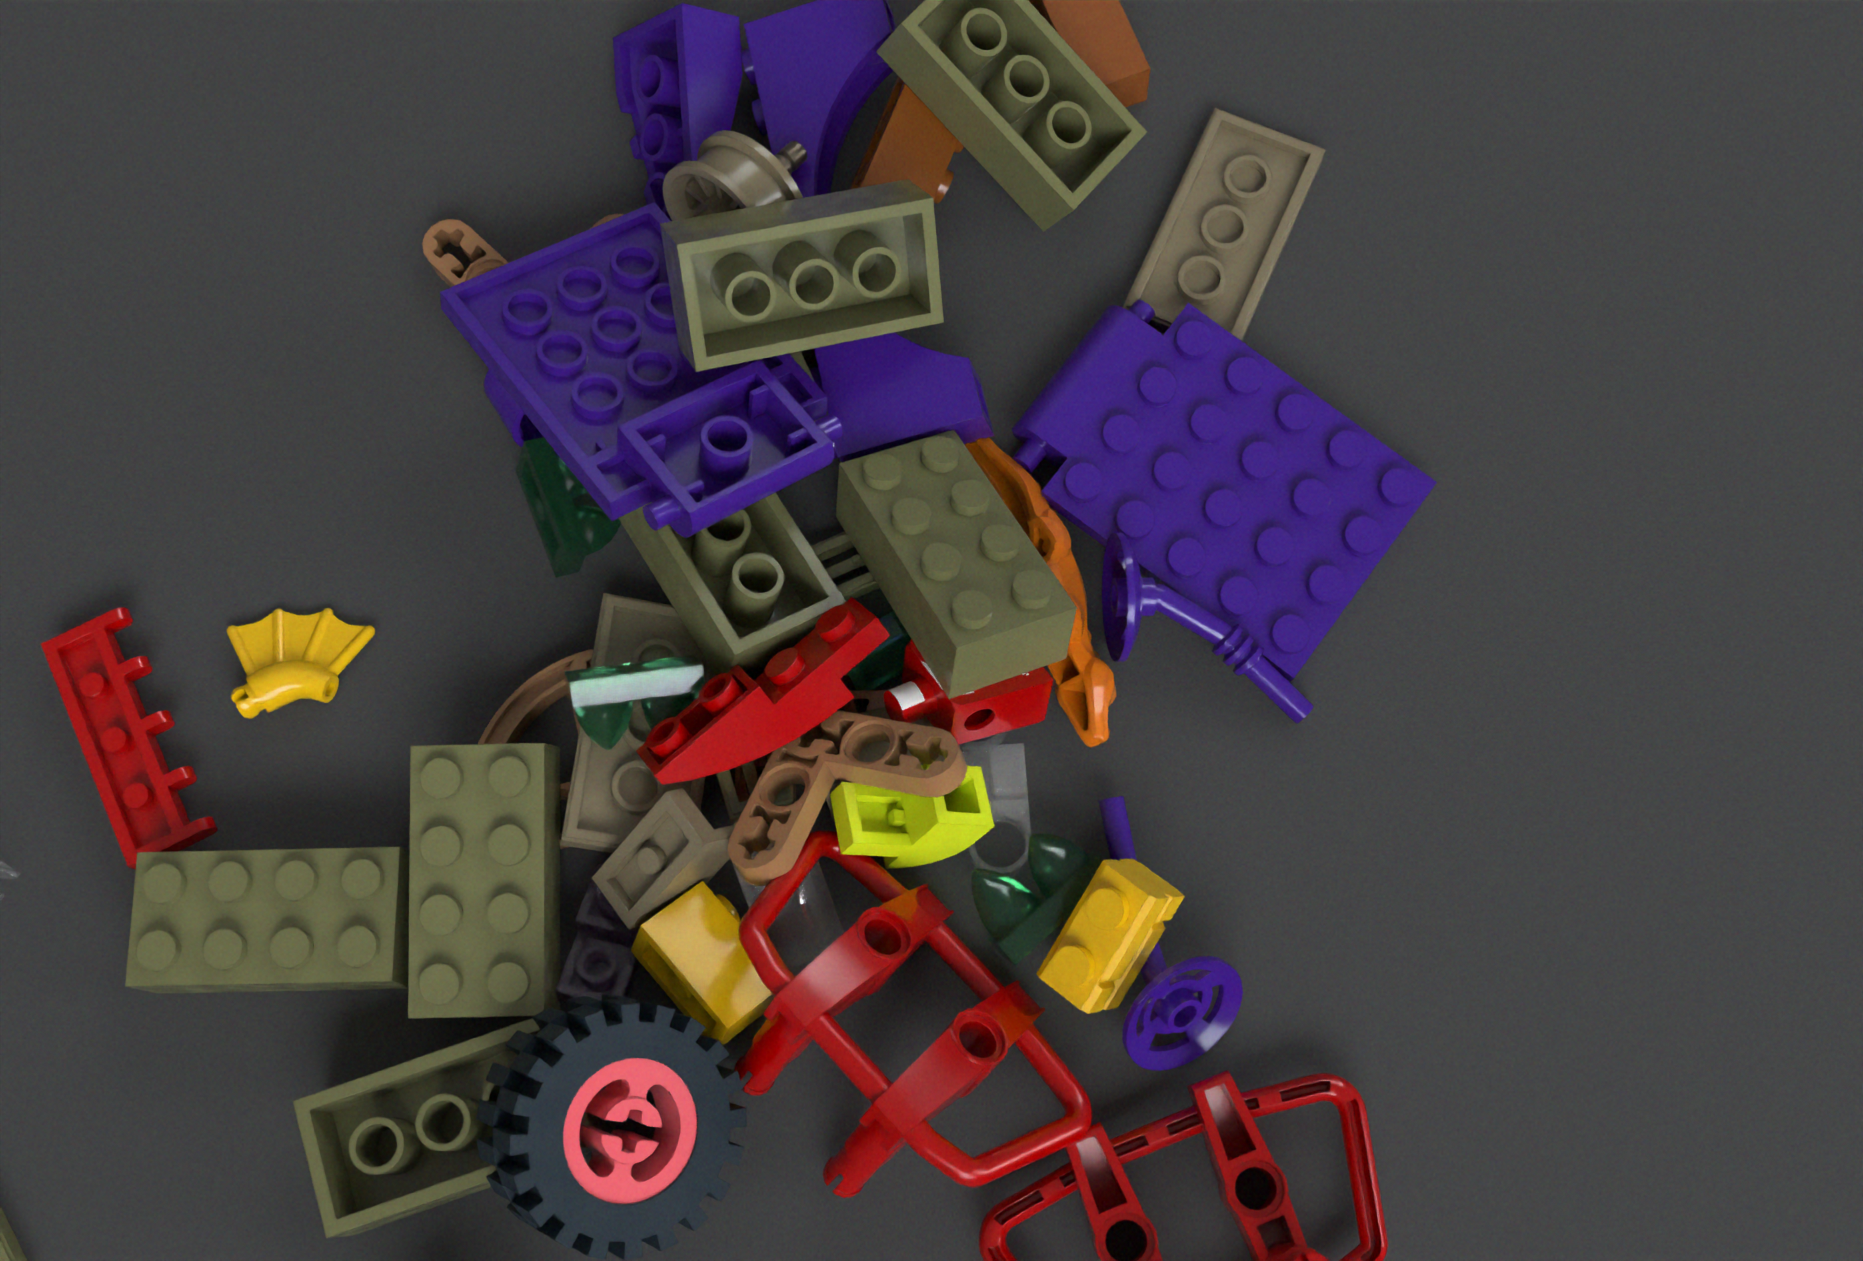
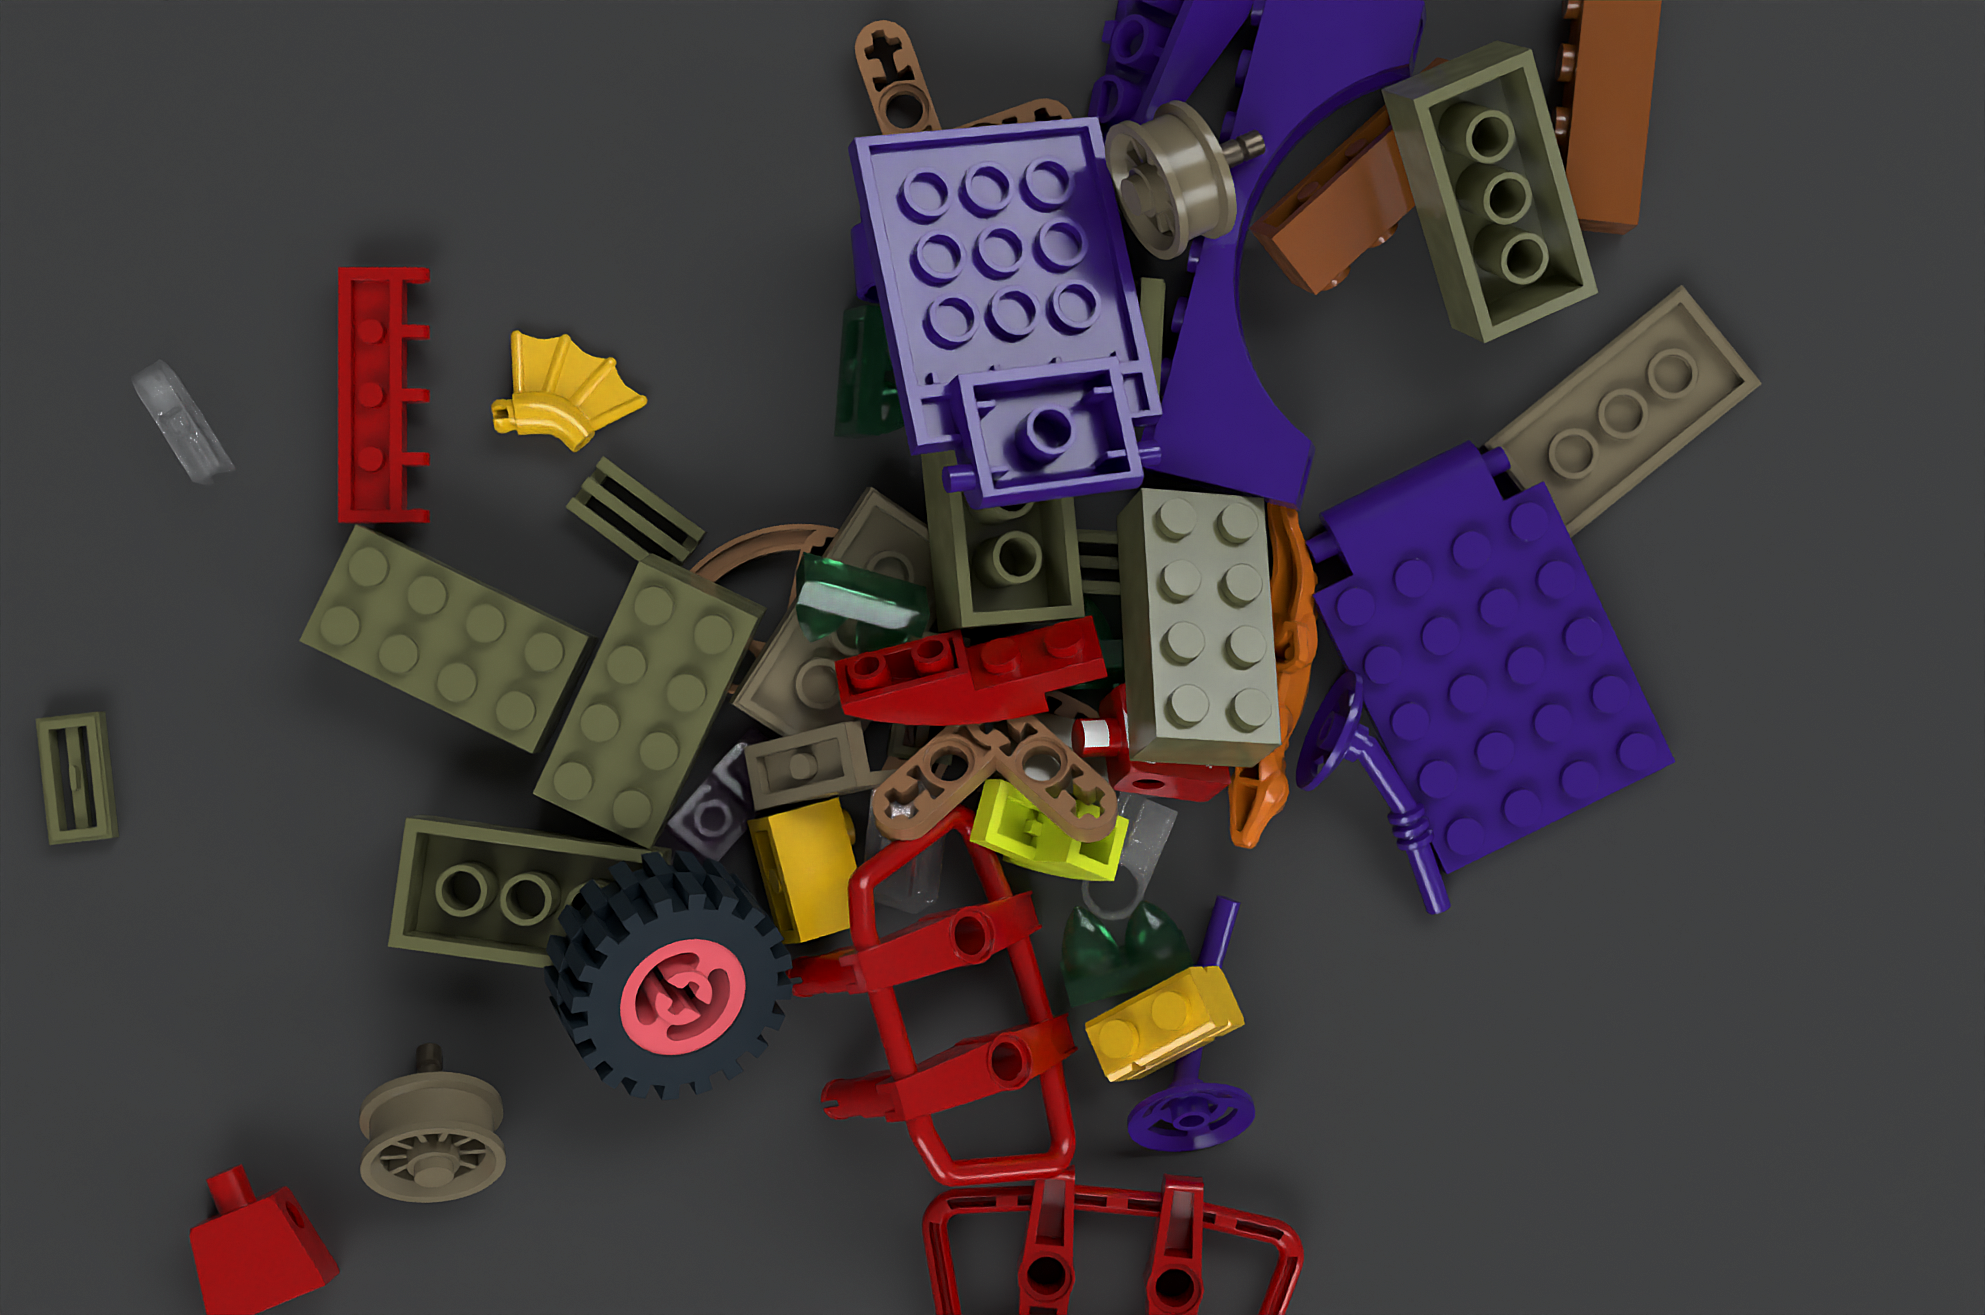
camera: 15 degrees right, 15 degrees up
(358, 725) = (593, 487): none -> olive tile
(803, 273) = (1198, 300): olive brick -> none

